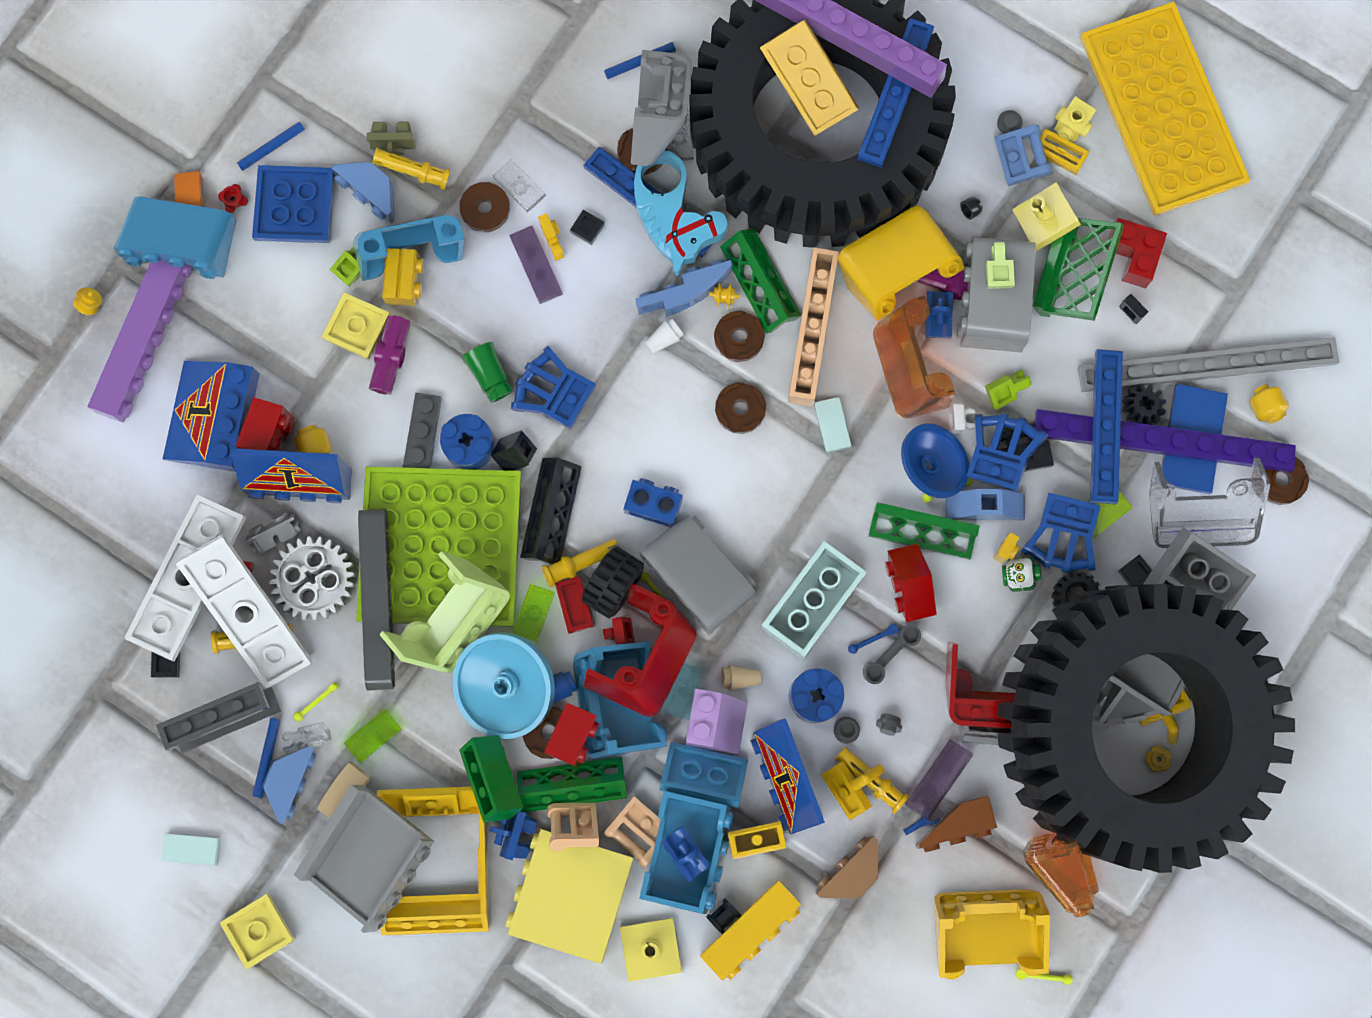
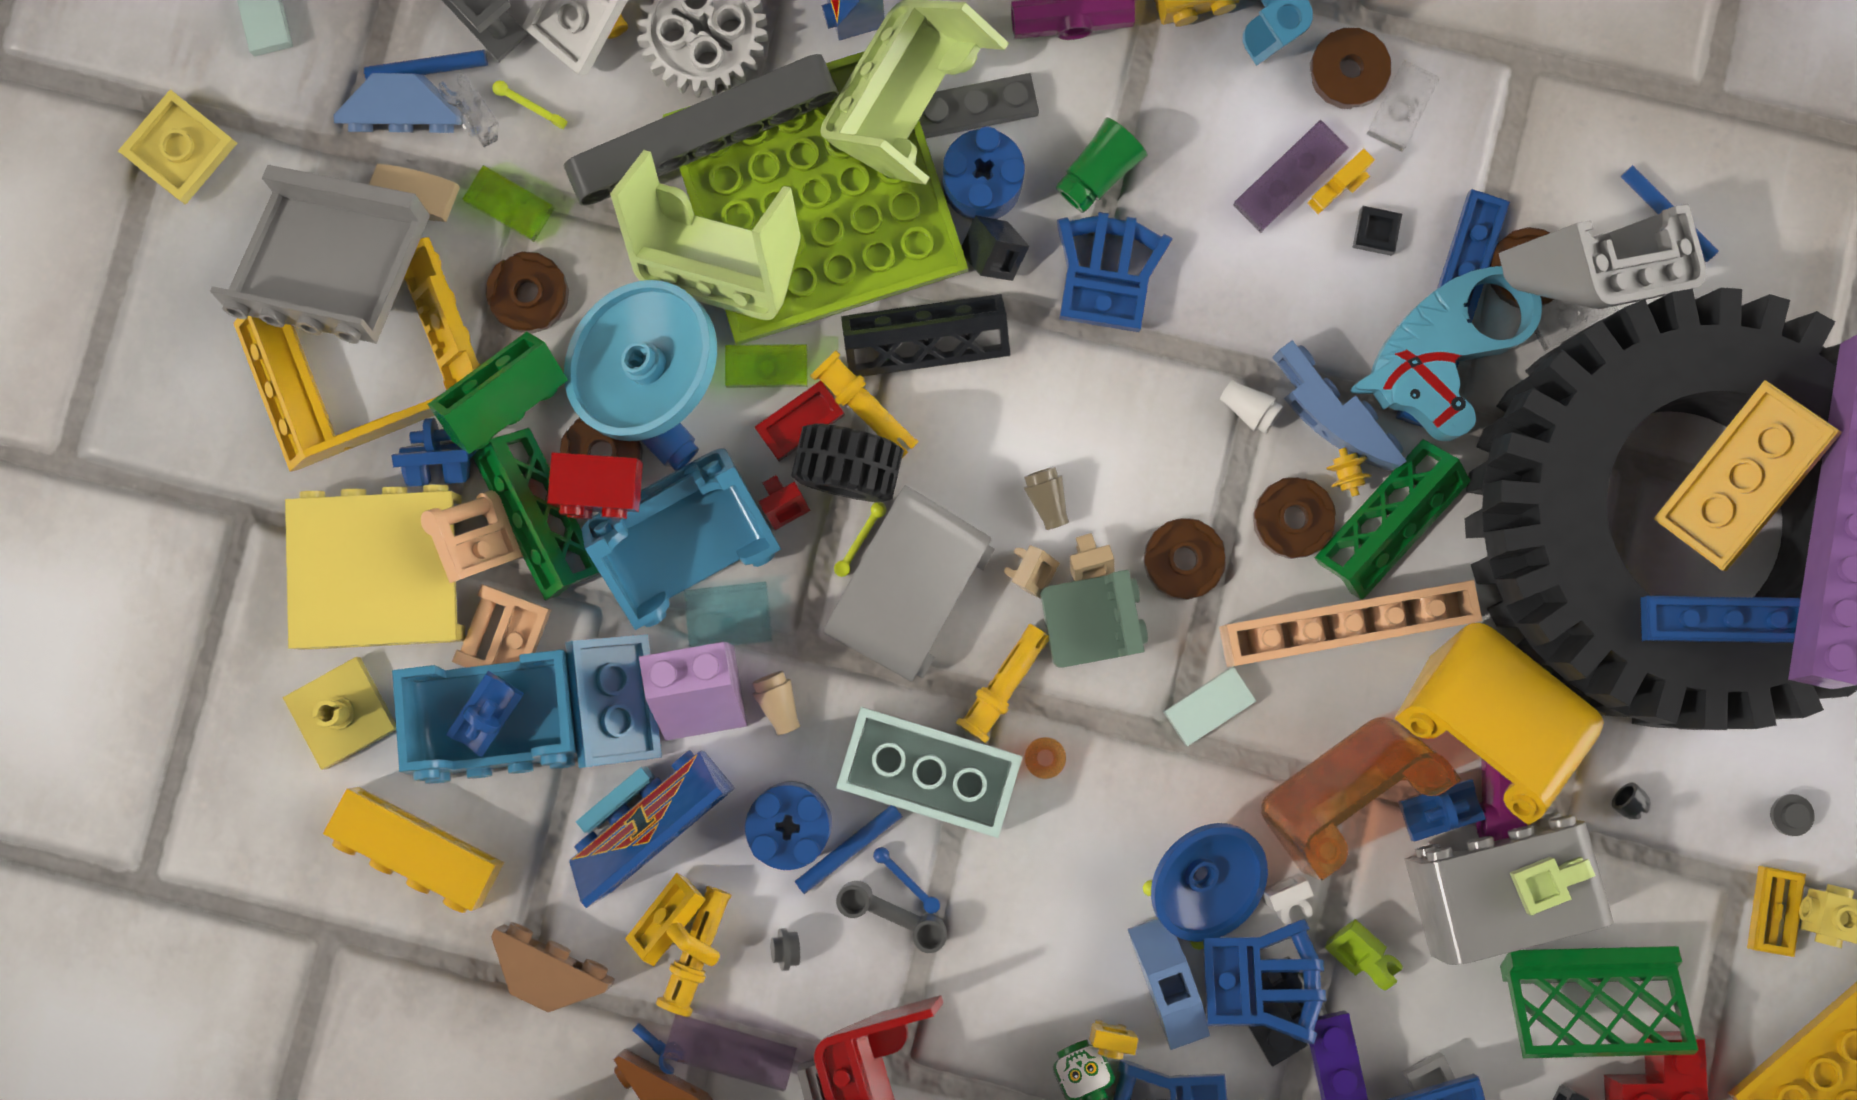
camera: 65 degrees right, 5 degrees up
(391, 471) = (899, 77): none -> yellowish green windscreen
(417, 740) = (532, 315): none -> reddish brown tile
(648, 689) = (708, 576): red windscreen -> none
(650, 510) = (982, 480): blue brick -> none
(673, 473) = (1047, 495): none -> dark tan cone
(716, 497) = (1034, 570): none -> tan tile
(723, 463) = (1090, 561): none -> tan tile
(723, 915) = (421, 801): black bush -> none
(756, 840) = (543, 811): yellow brick -> none
(757, 472) = (1093, 619): none -> sand green bracket
(764, 795) = (615, 799): none -> medium azure tile
(783, 548) = (993, 699): none -> yellow pin
(832, 523) = (1054, 767): none -> clear orange plate
(842, 666) = (848, 849): none -> blue bar
(846, 730) = (756, 888): dark grey plate -> none
(912, 581) = (1009, 909): red brick -> none
(926, 521) = (1112, 900): green fence -> none
(1014, 157) = (1740, 841): medium blue plate -> none
(1046, 216) = (1662, 924): light yellow tile -> none

